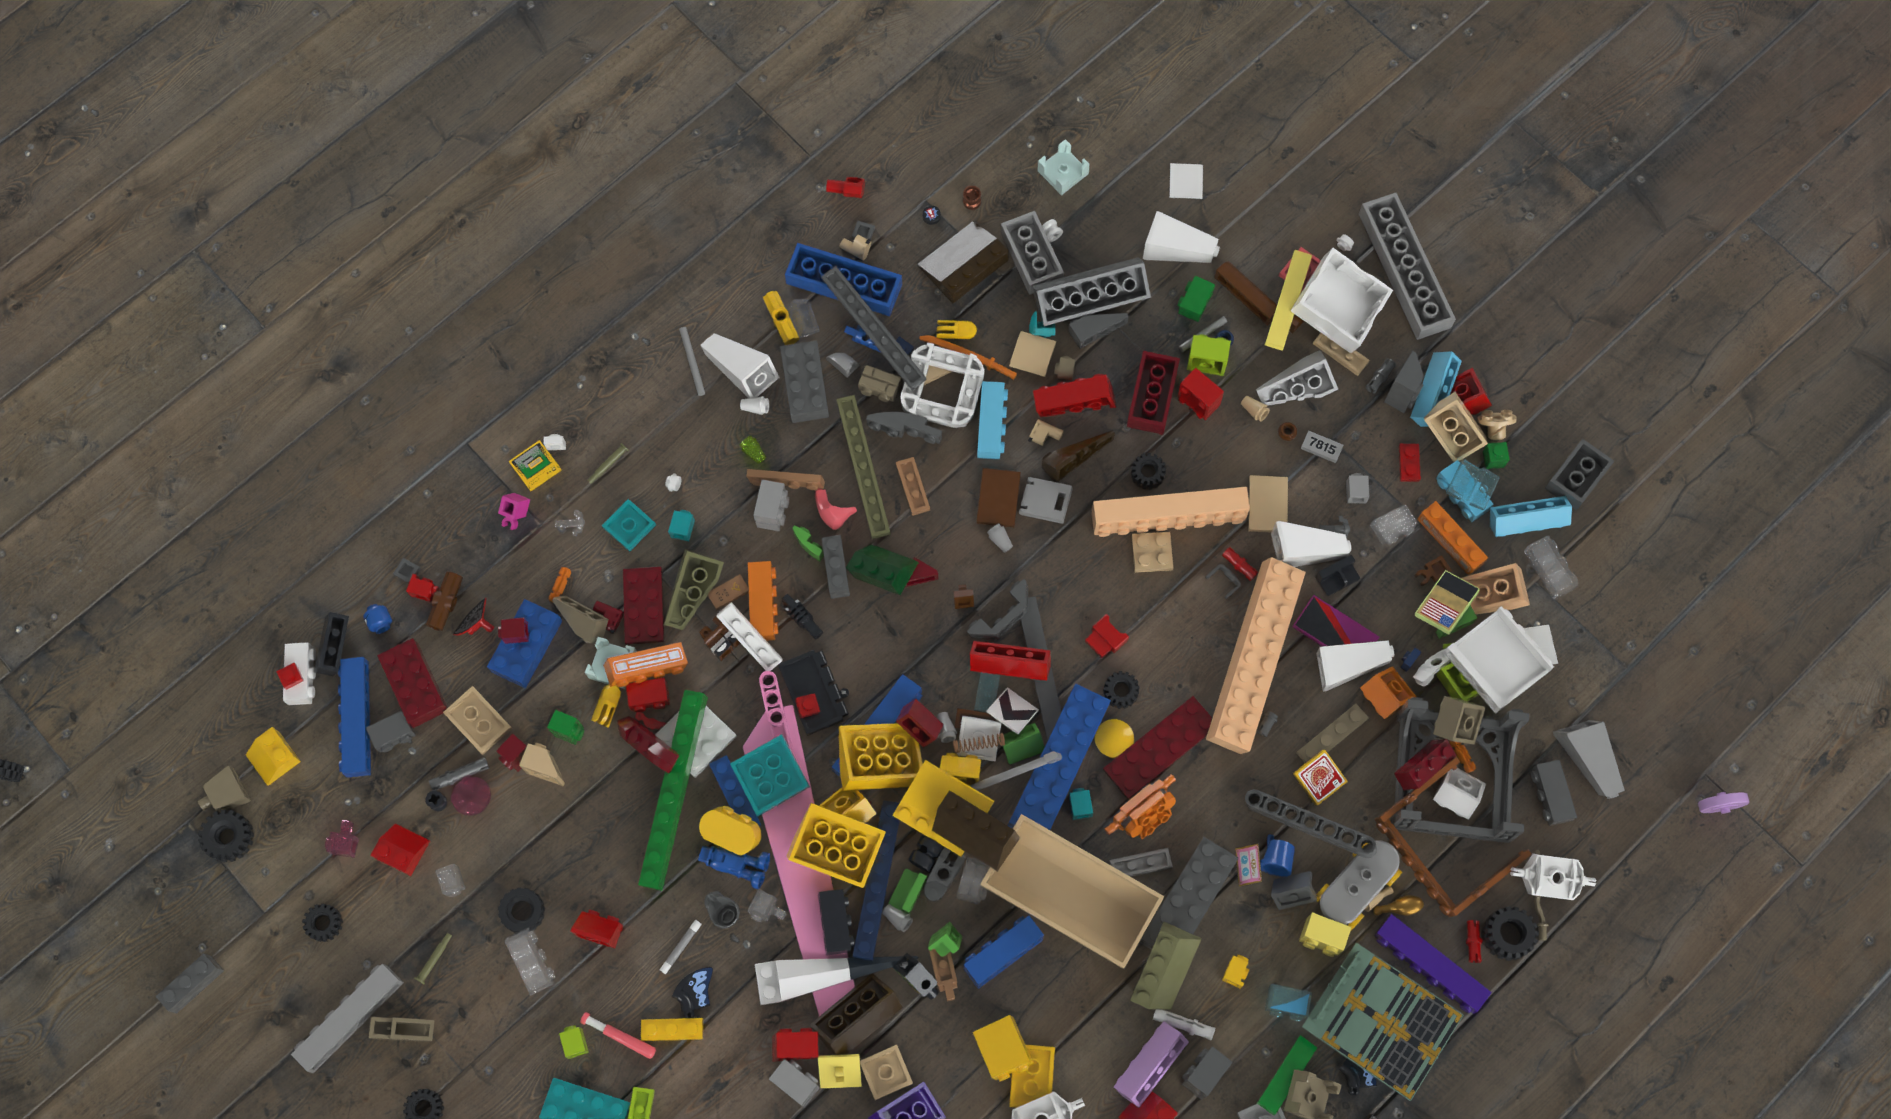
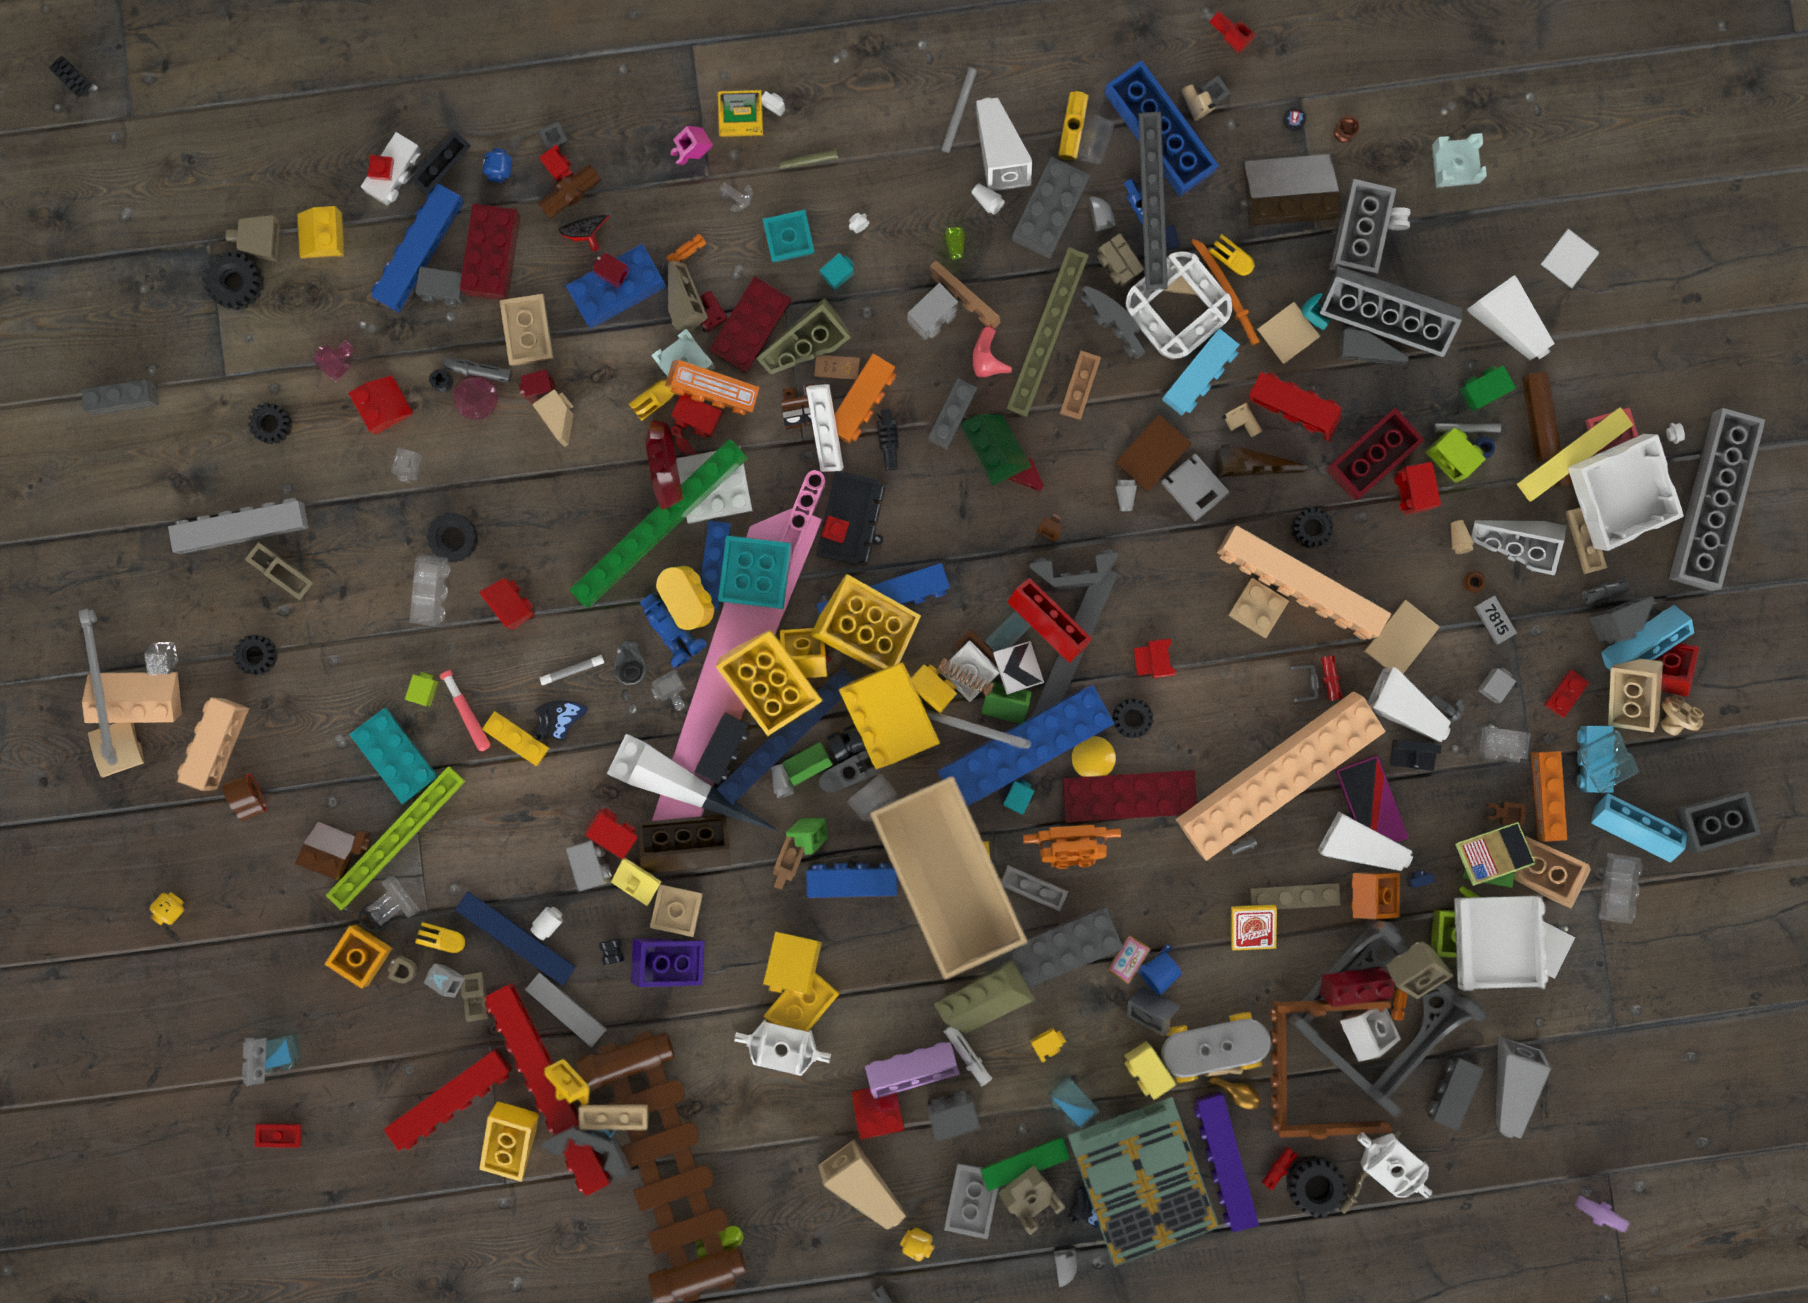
camera: 30 degrees right, 15 degrees up
(433, 959) = (346, 526): olive piece -> none
(566, 727) = (600, 395): green brick -> none
(804, 538) = (943, 363): bright green slope -> none
(916, 976) = (760, 852): torso -> none
(919, 723) = (924, 620): dark red brick -> none
(948, 732) = (946, 640): light grey cone -> none
(974, 831) = (898, 762): dark brown slope -> none
(1065, 368) = (1309, 370): dark tan plate -> none
(1317, 830) = (1210, 953): dark grey beam -> none
(1426, 671) = (1426, 903): white piece -> none
(1496, 455) = (1653, 746): green brick -> none

